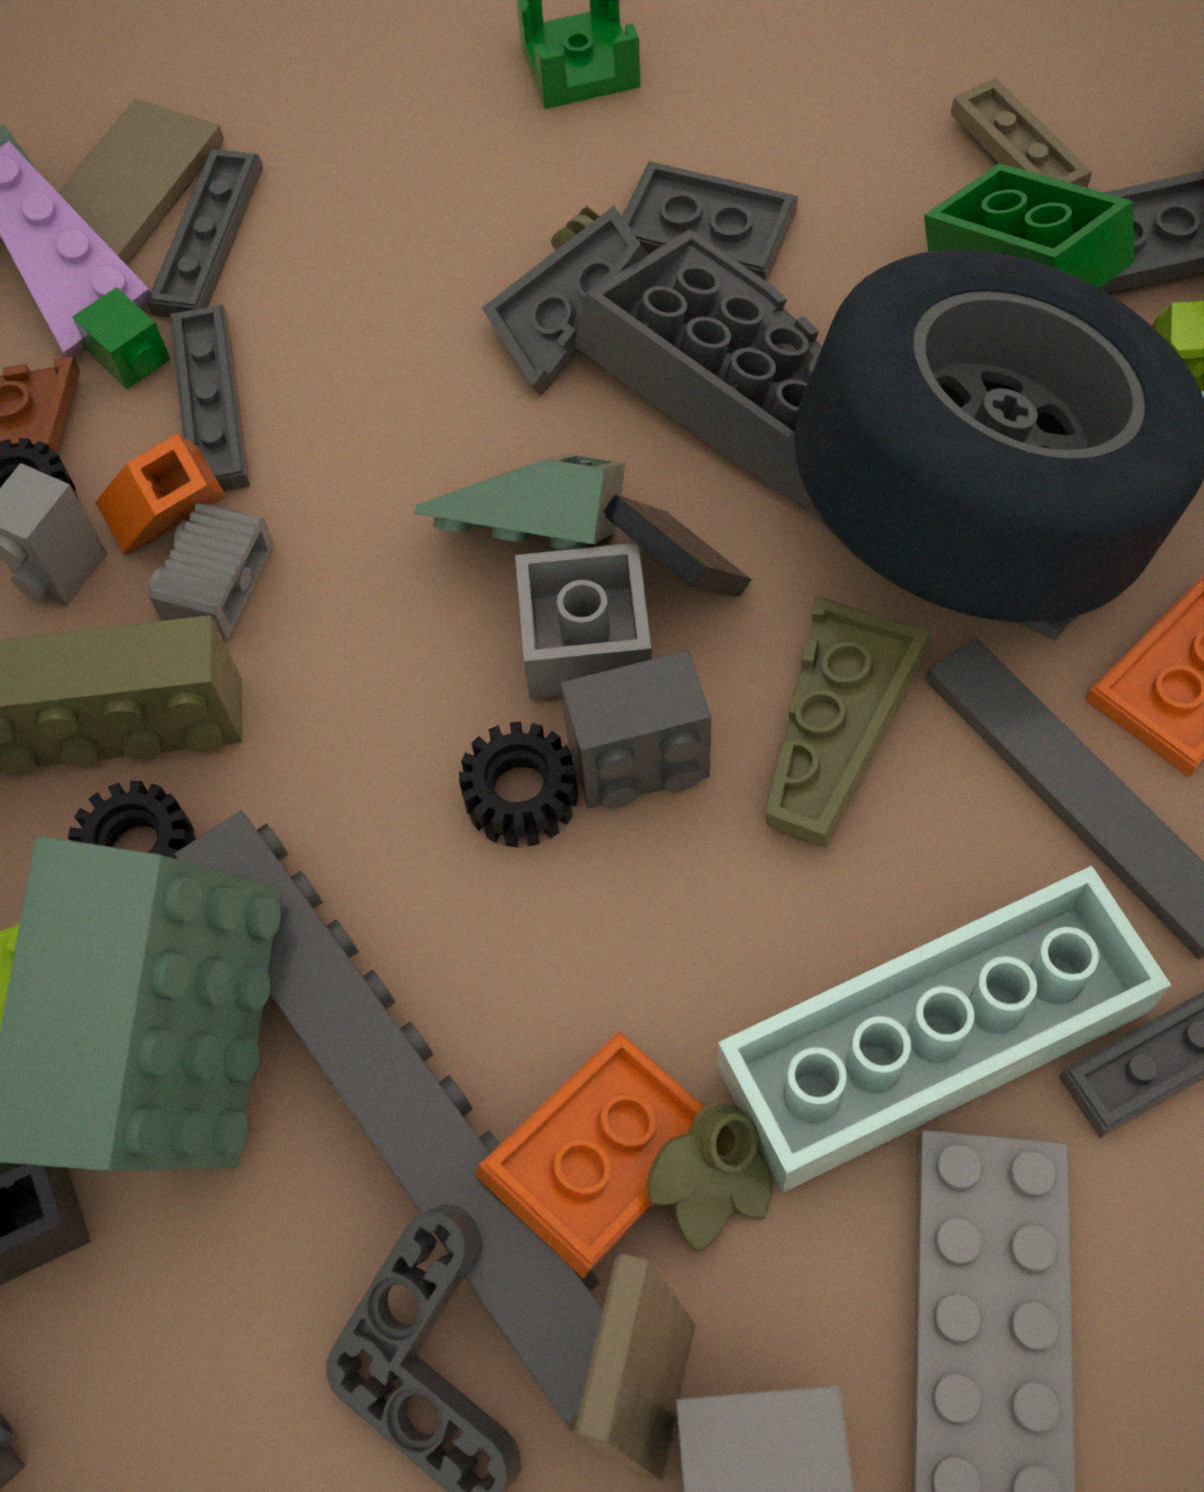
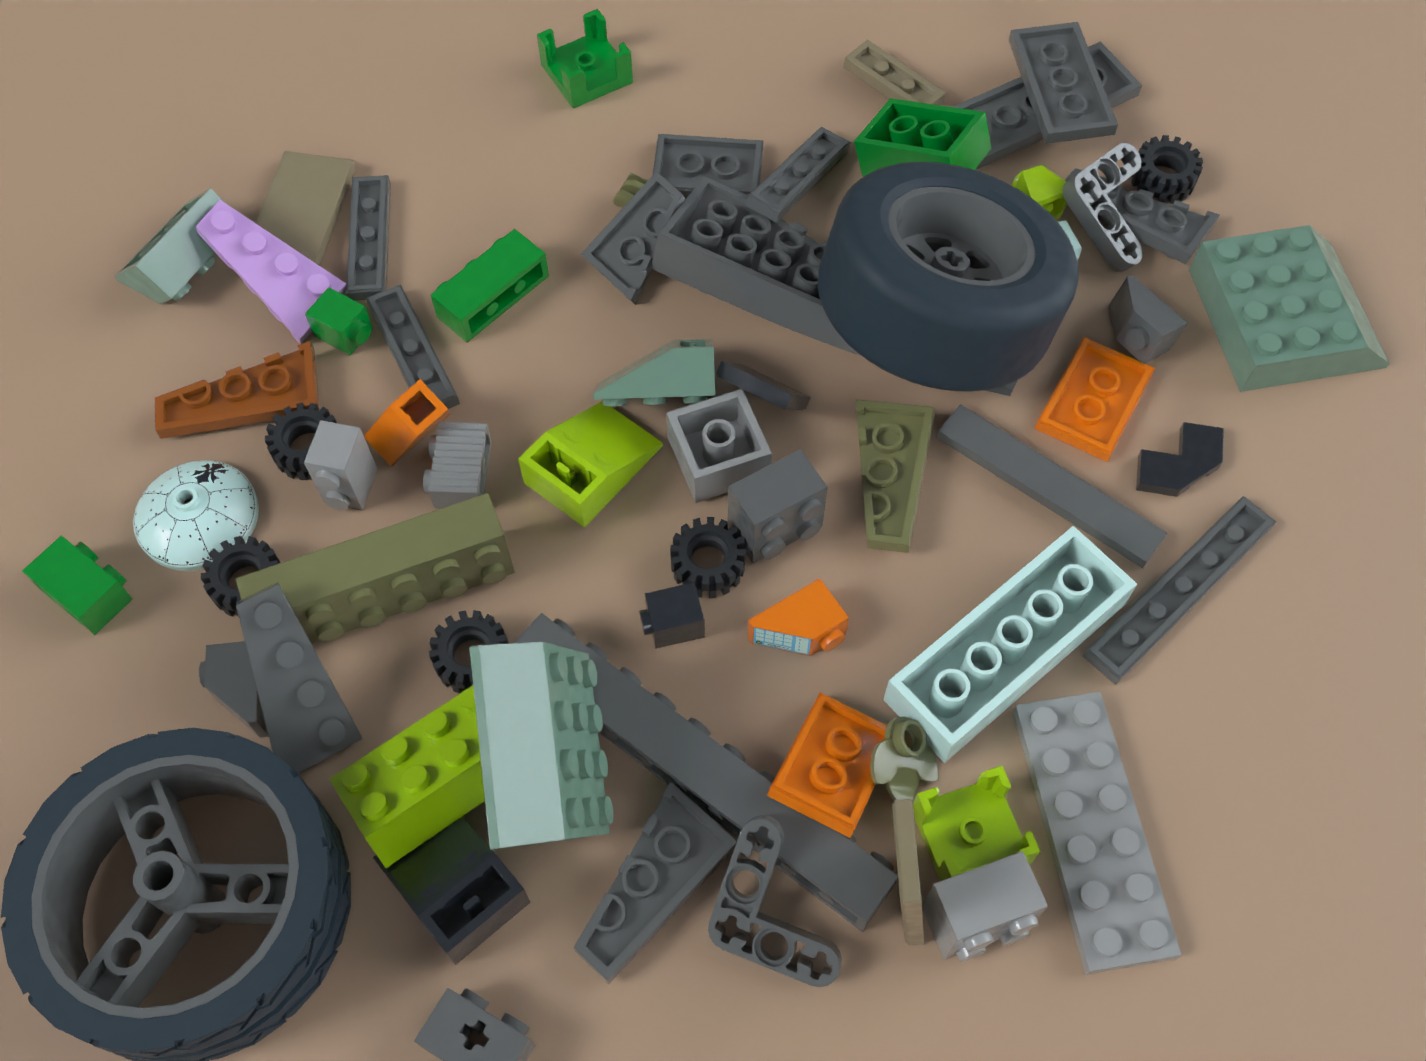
camera: 20 degrees left, 0 degrees up
(288, 1254) = (664, 869): none -> dark grey wing
(342, 327) = (490, 285): none -> green brick
(391, 601) = (587, 461): none -> lime slope
(437, 859) = (673, 615): none -> black brick
(624, 915) = (801, 622): none -> orange slope
(791, 1315) = (971, 825): none -> lime panel
(830, 251) = (798, 174): none -> dark grey tile

